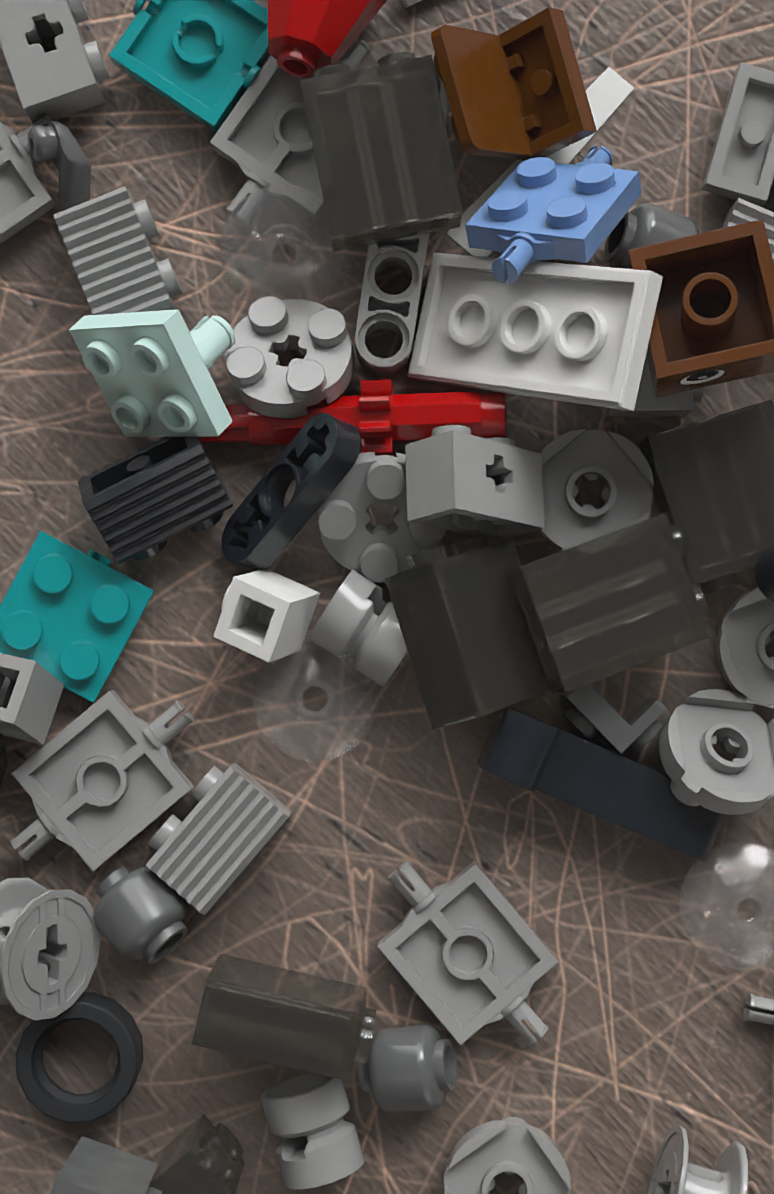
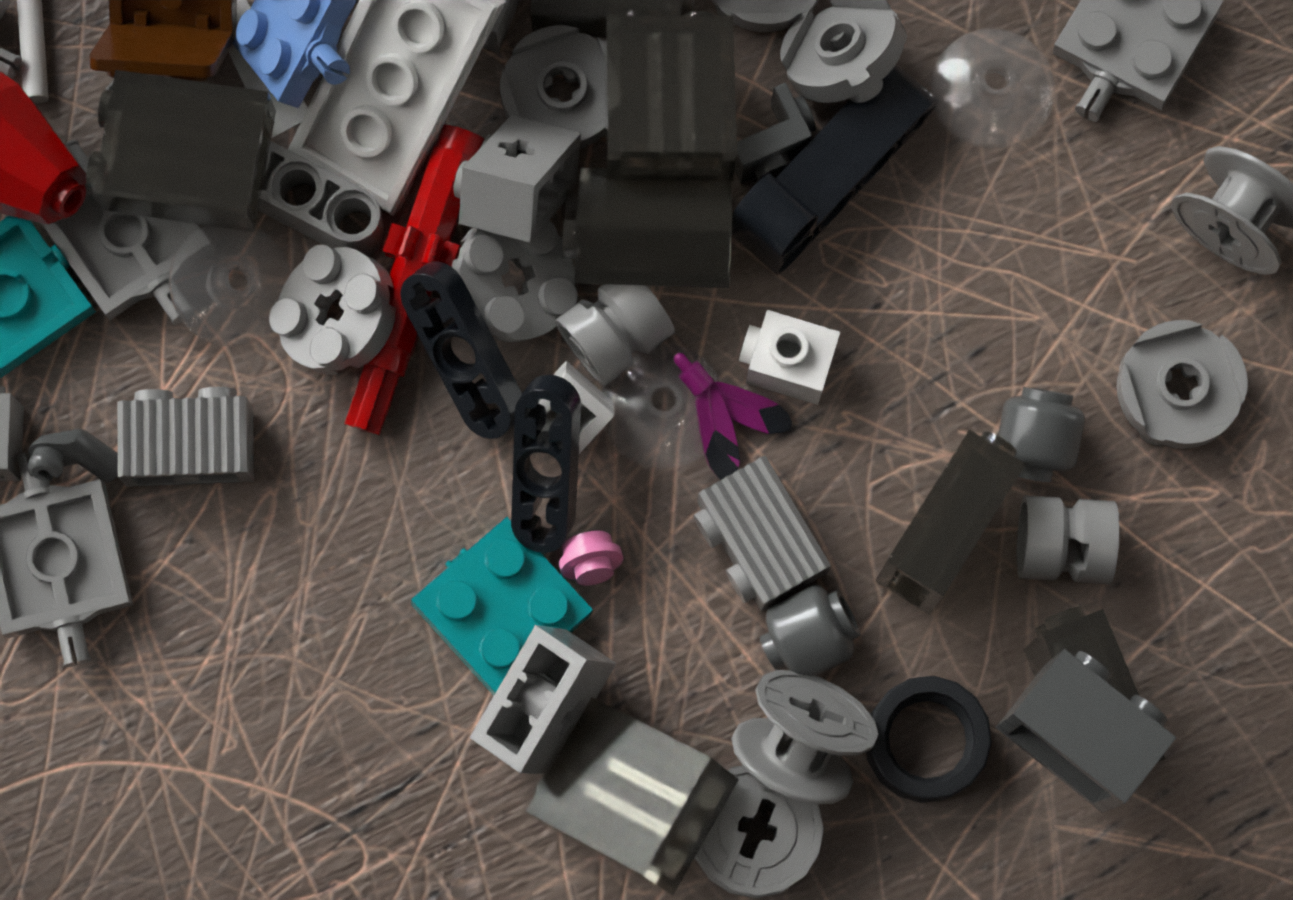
camera: 75 degrees left, 10 degrees down
(102, 780) = (670, 626): light grey plate -> none
(140, 683) = (590, 558): none -> bright pink plate
(154, 496) = (417, 476): black brick -> none
(157, 371) = (305, 429): light aqua plate -> none
(219, 620) = (561, 443): none -> black beam
(334, 753) = (717, 407): none -> magenta piece
(399, 804) = (789, 356): none -> white brick
(467, 953) = (950, 344): light grey plate -> none

